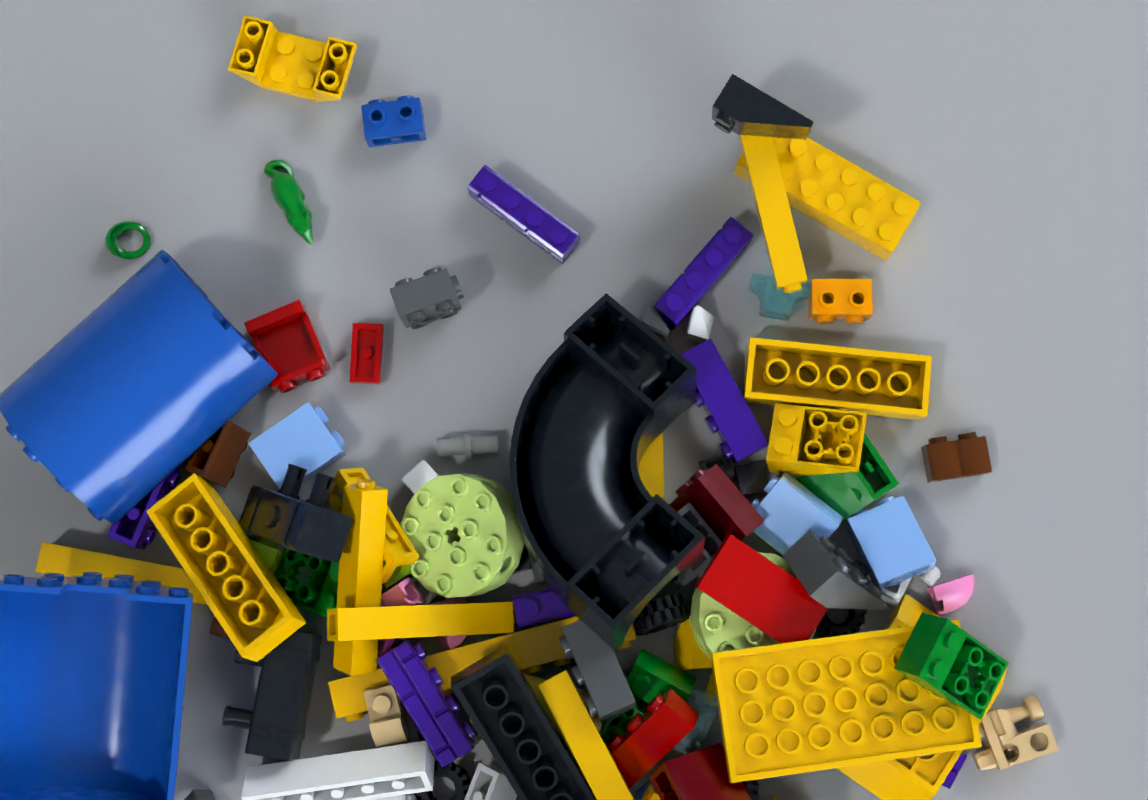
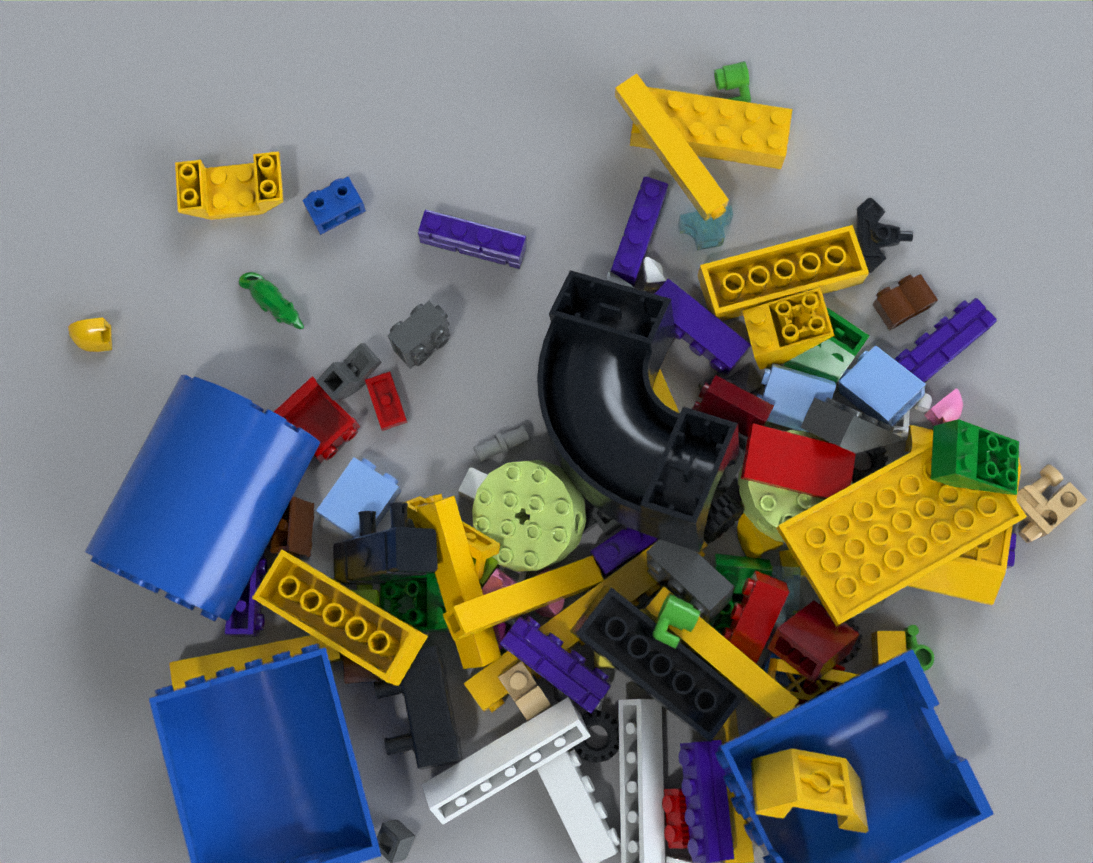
camera: 25 degrees left, 5 degrees down
(94, 167) = (91, 334): none -> yellow brick
(117, 230) = (133, 379): green piece -> none
(337, 313) = (349, 376): none -> dark grey brick
(565, 706) = (677, 614): none -> bright green piece
(755, 113) = (635, 79): black slope -> none
(840, 300) = (759, 211): light orange brick -> none
(876, 141) = (734, 77): none -> bright green piece
(955, 373) = (876, 235): none -> black piece
(983, 520) = (948, 340): none -> dark purple brick

